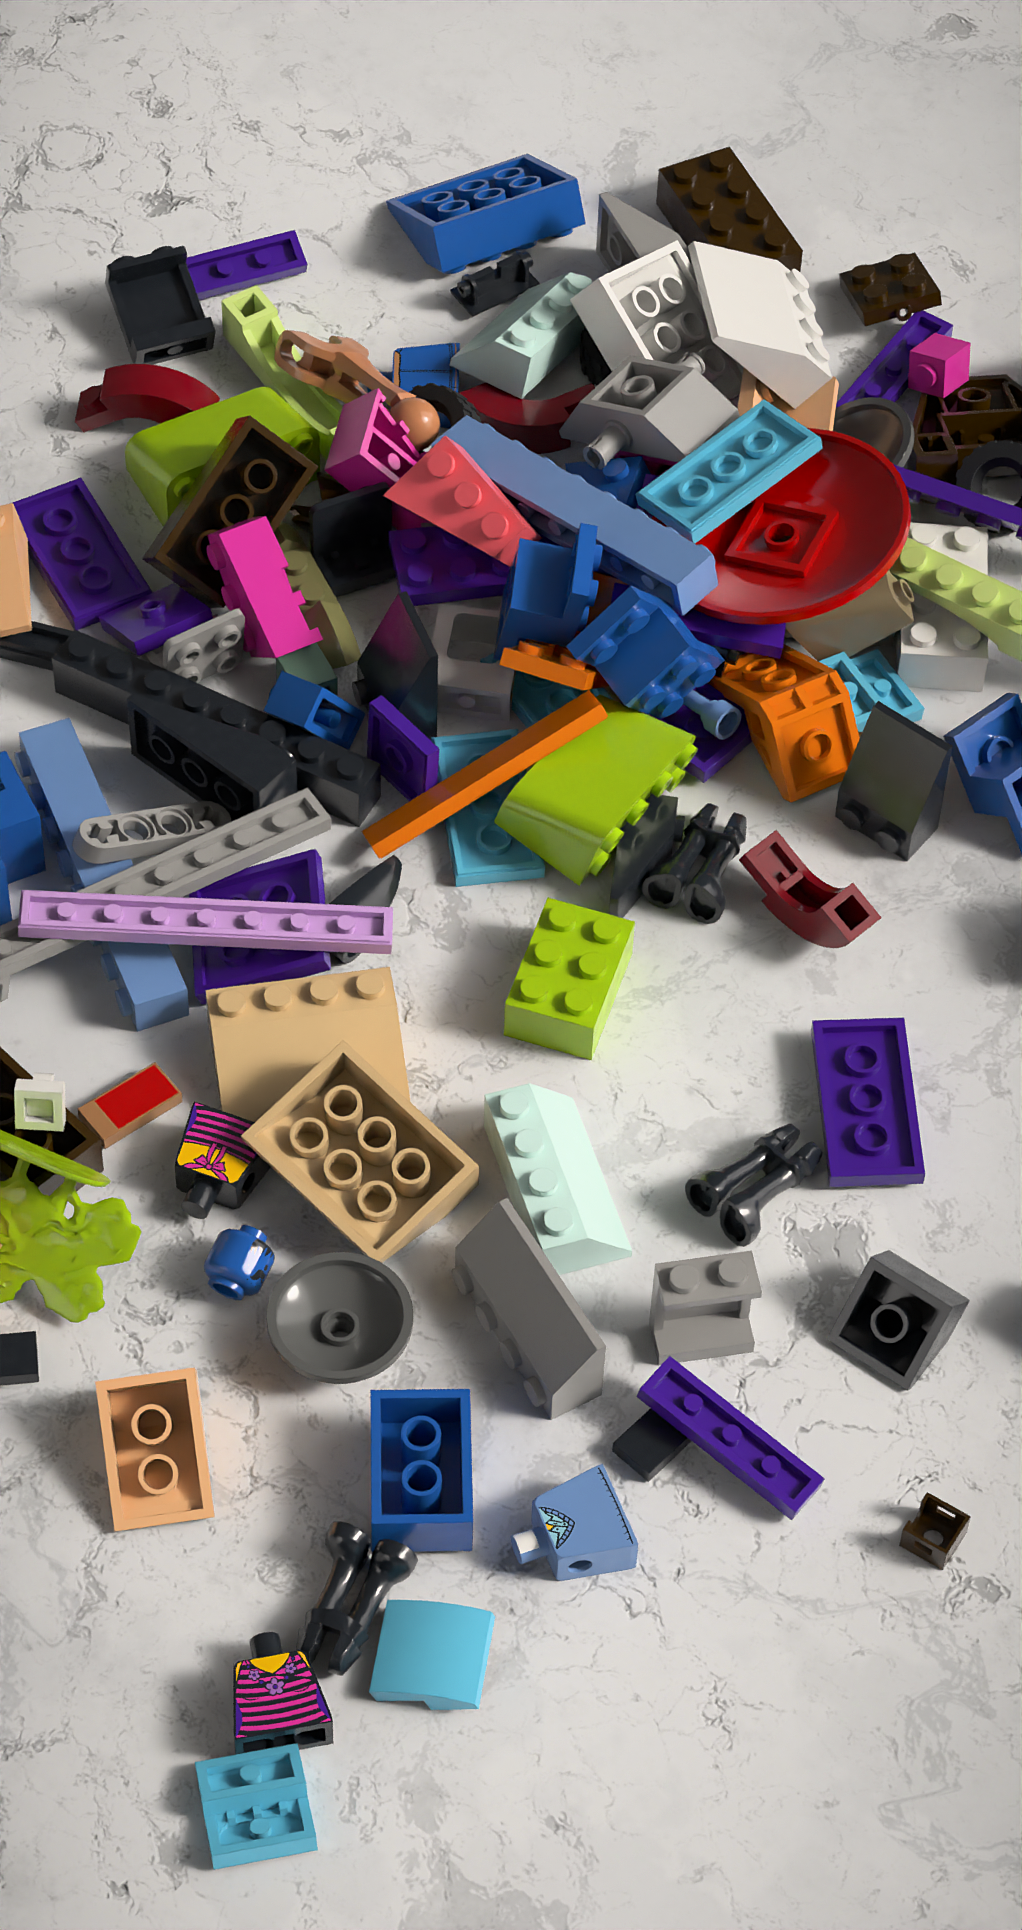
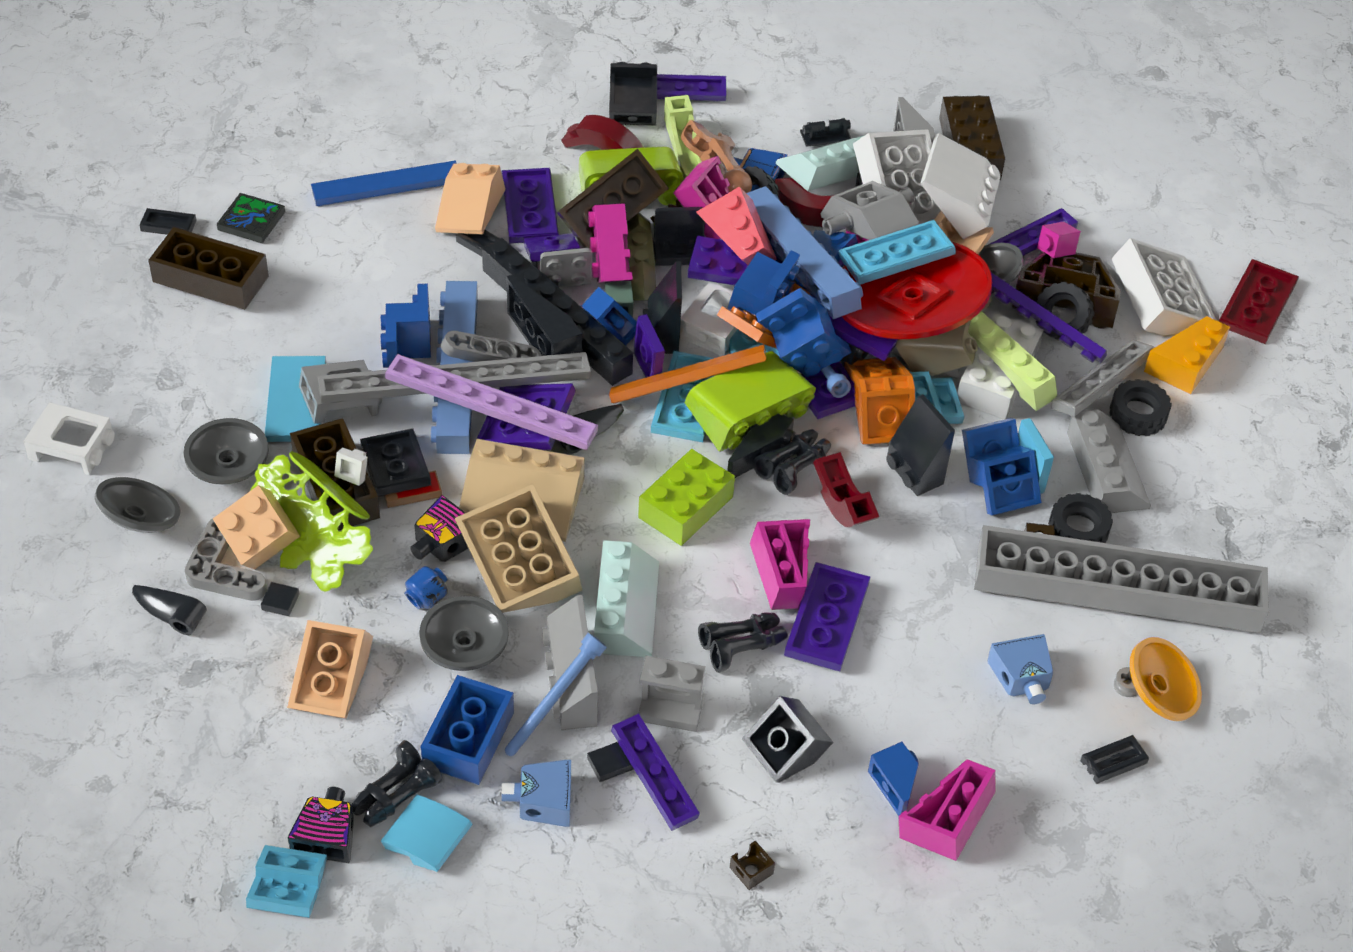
camera: 20 degrees right, 5 degrees down
(97, 1066) = (395, 462): none -> black tile
(489, 212) = (840, 97): blue slope -> none
(566, 1282) = (590, 649): none -> medium blue piece
(764, 1037) = (782, 560): none -> dark pink wedge
(888, 286) = (1046, 192): dark brown plate -> none

